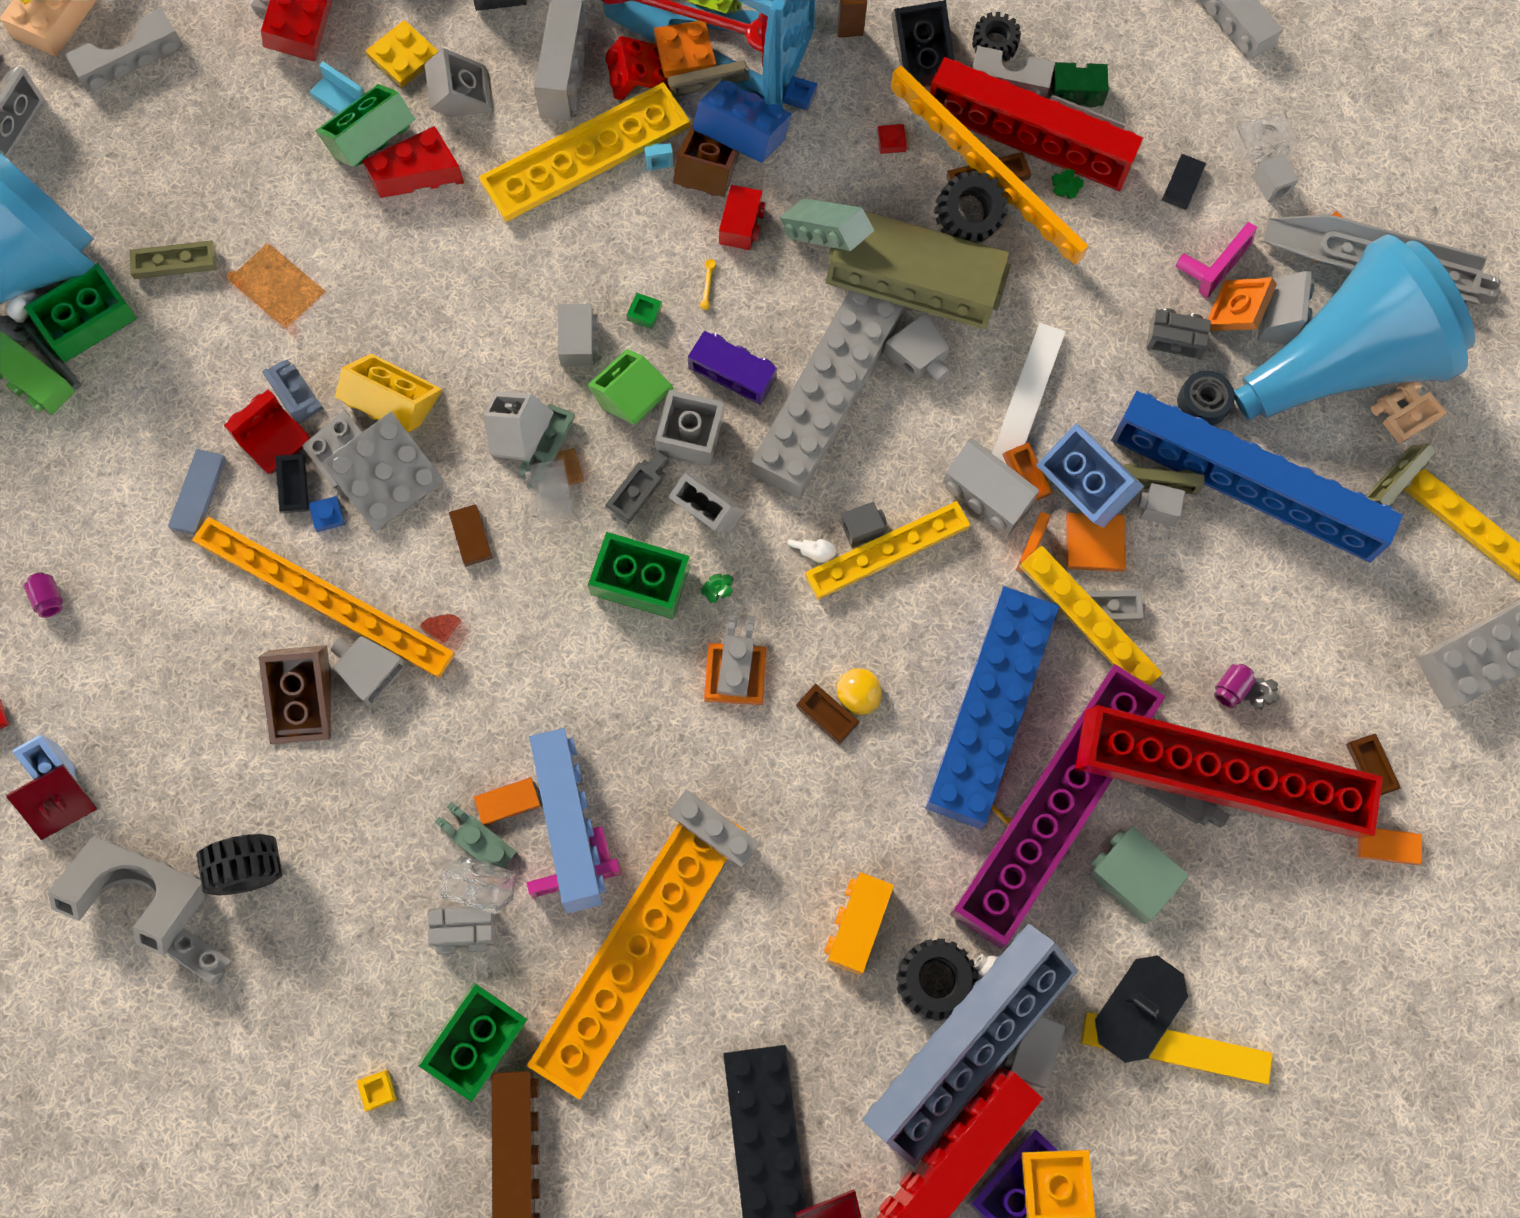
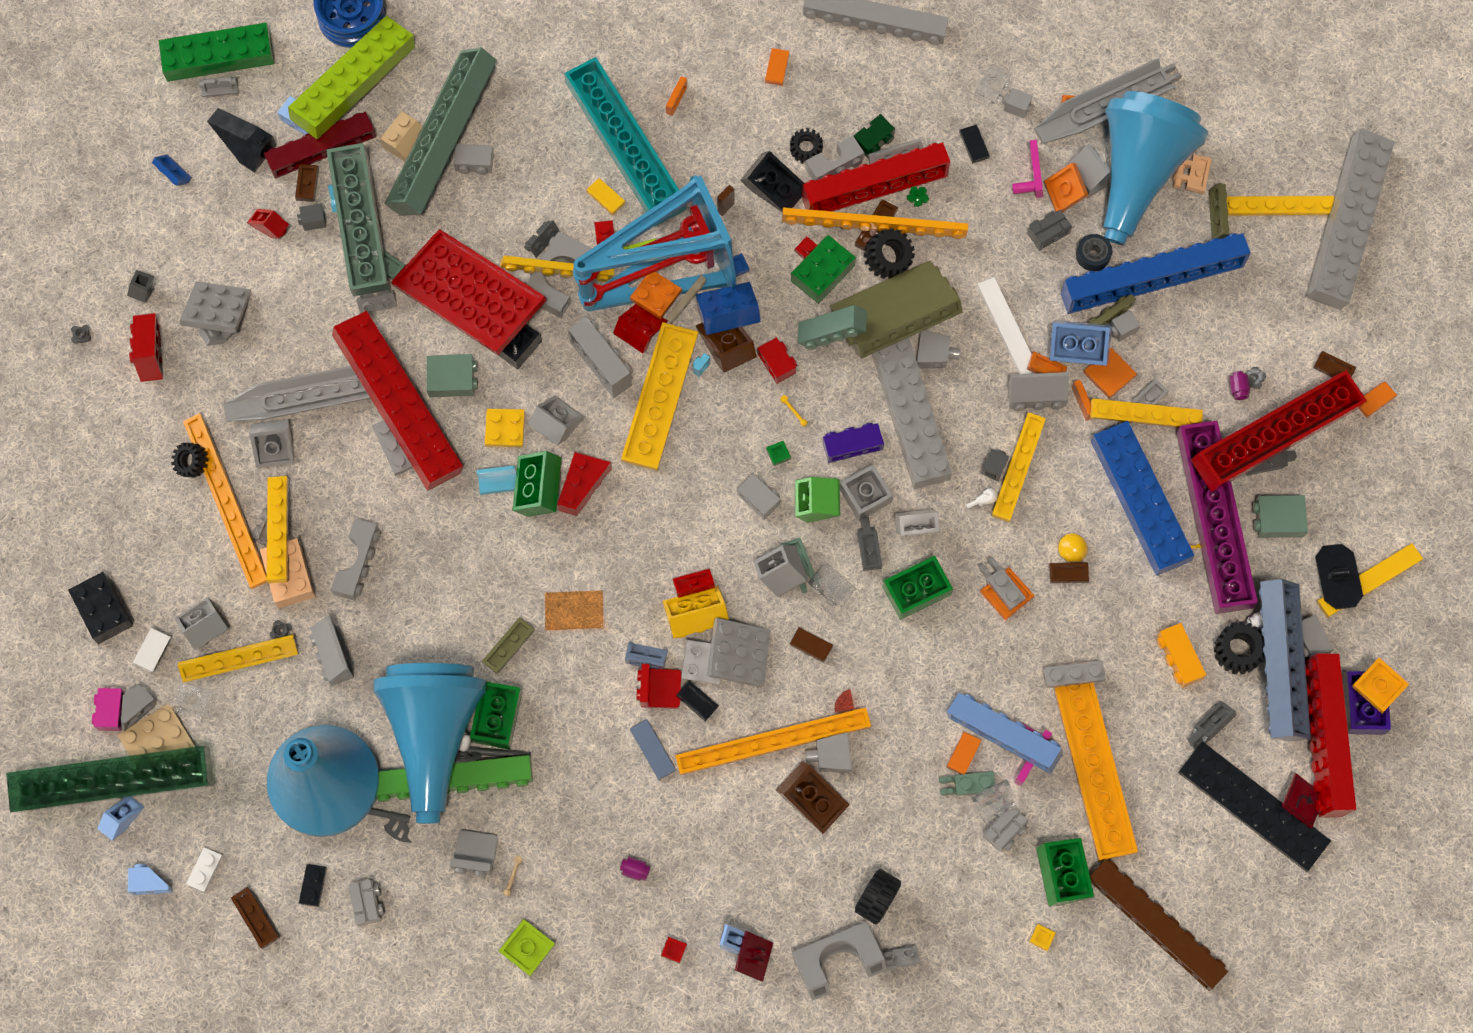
camera: 40 degrees left, 0 degrees up
(326, 514) = (729, 700): blue plate -> none
(417, 362) = (693, 583): none -> red plate
(572, 466) = (818, 561): clear orange piece -> none
(718, 586) = (957, 559): green plant -> none
(815, 1035) = (1211, 724): none -> dark grey hinge
(885, 168) = (823, 269): none -> green brick

